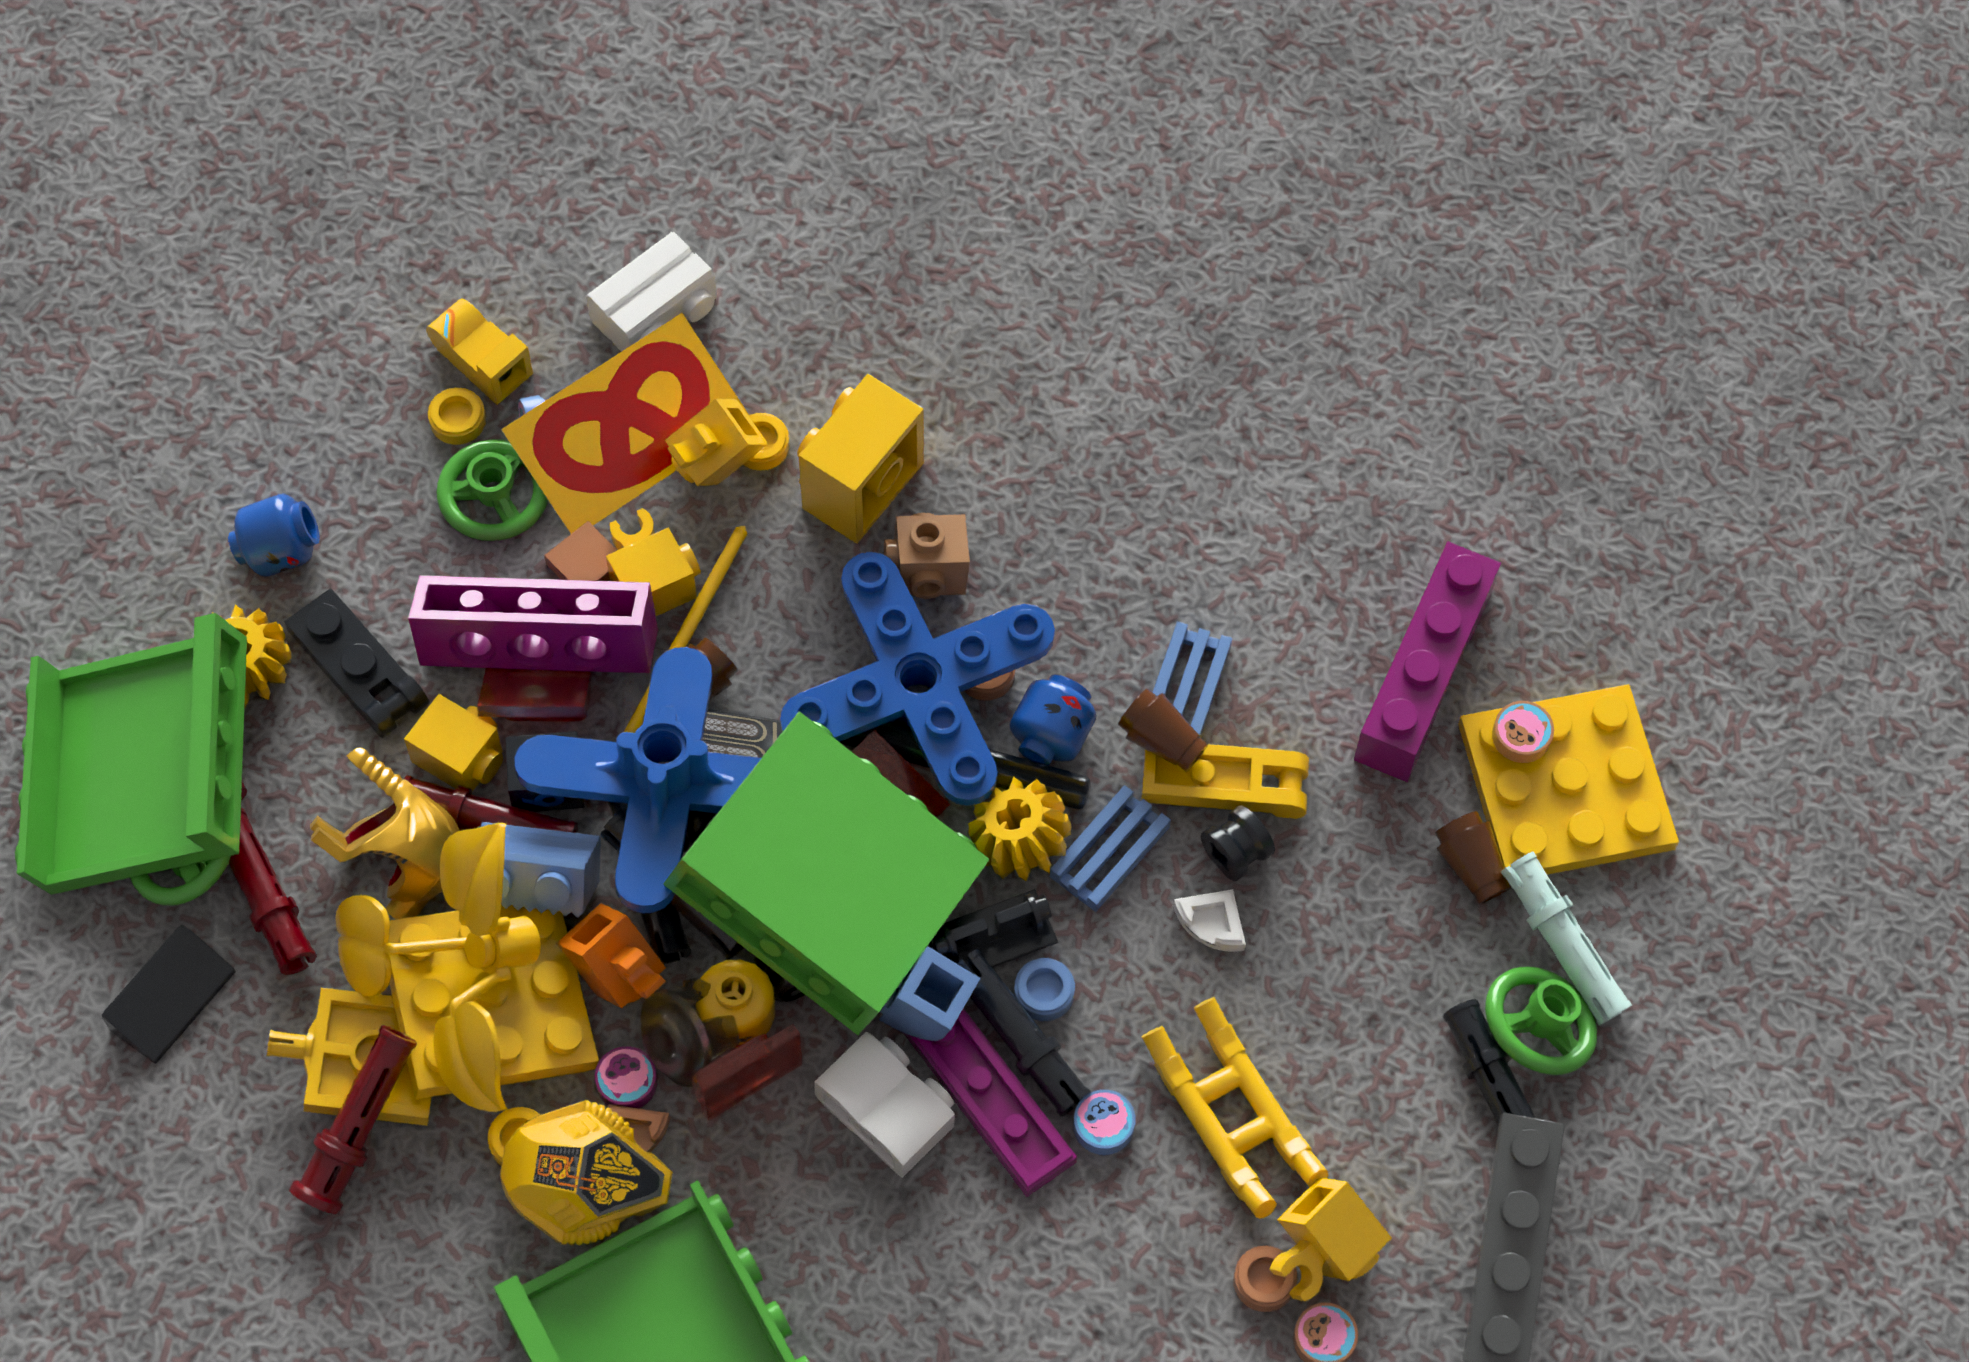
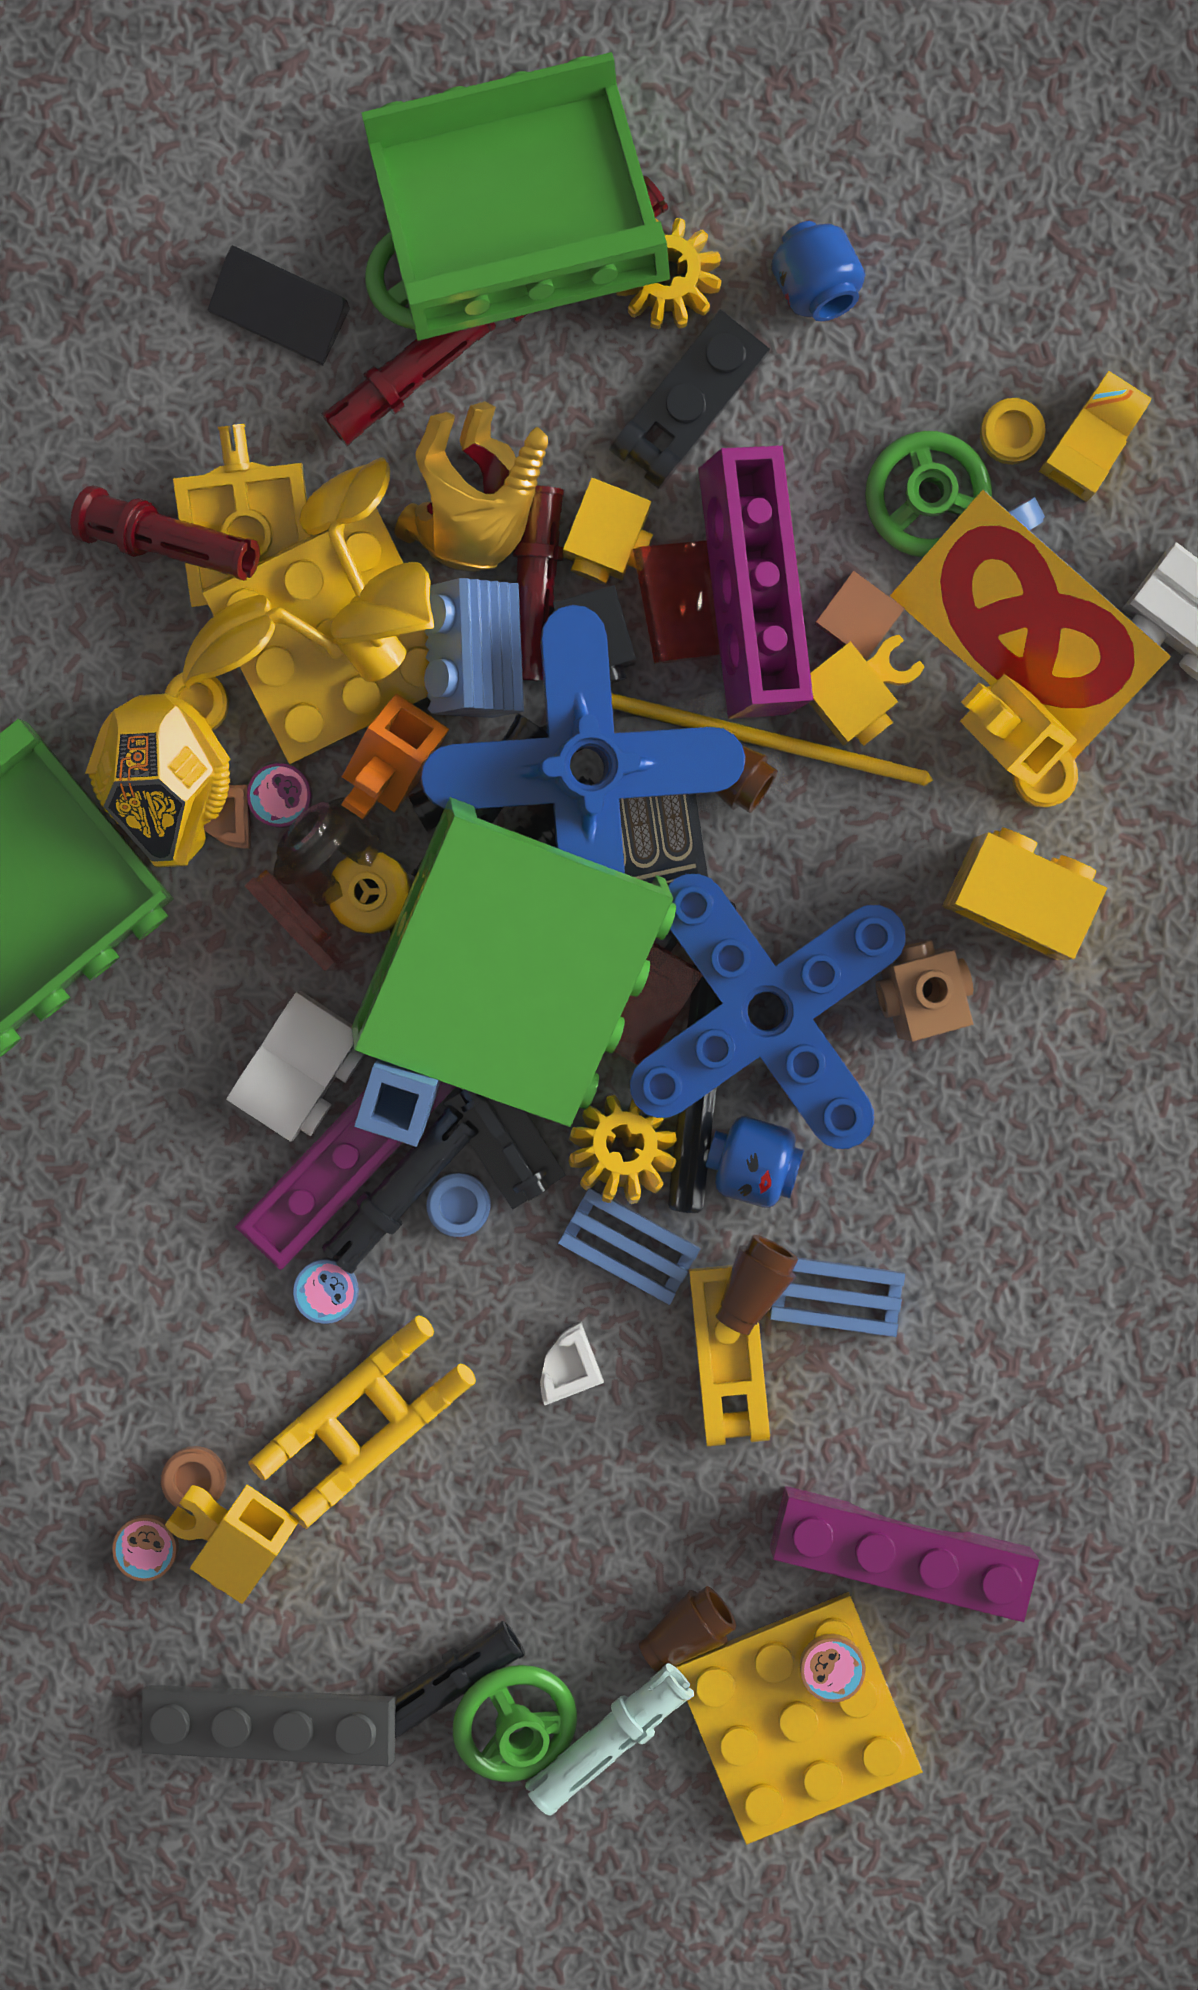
camera: 80 degrees right, 25 degrees up
(1238, 843) = (653, 1380): black wheel -> none

